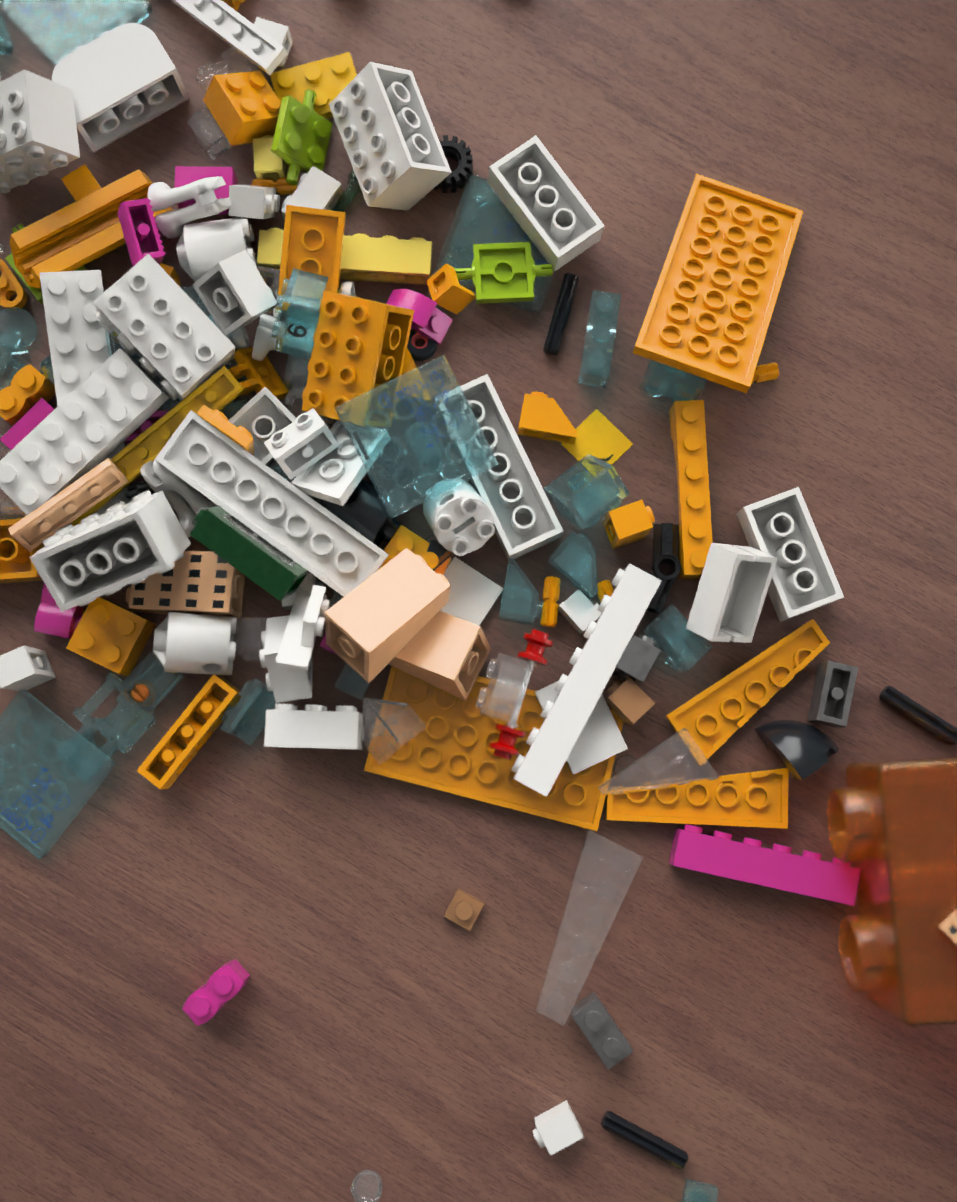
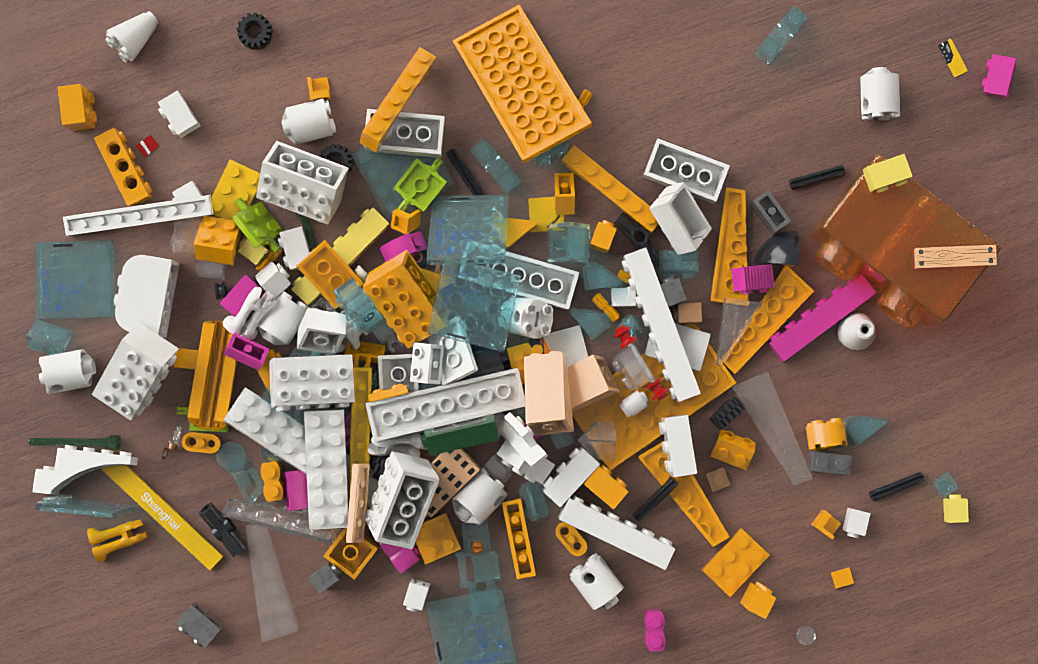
camera: 50 degrees left, 5 degrees up
(194, 159) = (220, 290): none -> black bush
(214, 871) = (598, 589): none -> white cylinder
(243, 794) = (571, 538): none -> light orange plate
(295, 842) = (618, 533): none -> white brick
(339, 781) = (605, 487): none -> light orange brick
(357, 1091) = (758, 599): none -> light orange brick
(375, 855) = (655, 499): none -> black axle
(382, 1019) = (735, 562): none -> light orange plate
(422, 858) = (687, 496): none -> light orange wing
(460, 825) = (678, 445): none -> white piece
(465, 94) = (308, 121): none -> white cylinder
(466, 729) = (634, 403): none -> white brick
(476, 1170) = (842, 578): none -> light orange piece
(501, 364) = (468, 229): none -> clear light blue plate
(510, 81) = (319, 89): none -> light orange panel
(515, 897) = (733, 449): none -> light orange bracket
(524, 1091) = (826, 524): none -> light orange panel
(526, 158) = (396, 99): none -> light orange arch
(552, 851) = (727, 412): none -> black tyre
(559, 651) = (634, 323): none -> clear light blue cone
(631, 996) = (826, 435): none -> light orange brick
(637, 441) = (564, 194): none -> light orange slope
(676, 1032) = (862, 427): none -> clear light blue slope
(738, 741) = (753, 277): none -> dark pink brick
(786, 923) = (850, 331): none -> white cone

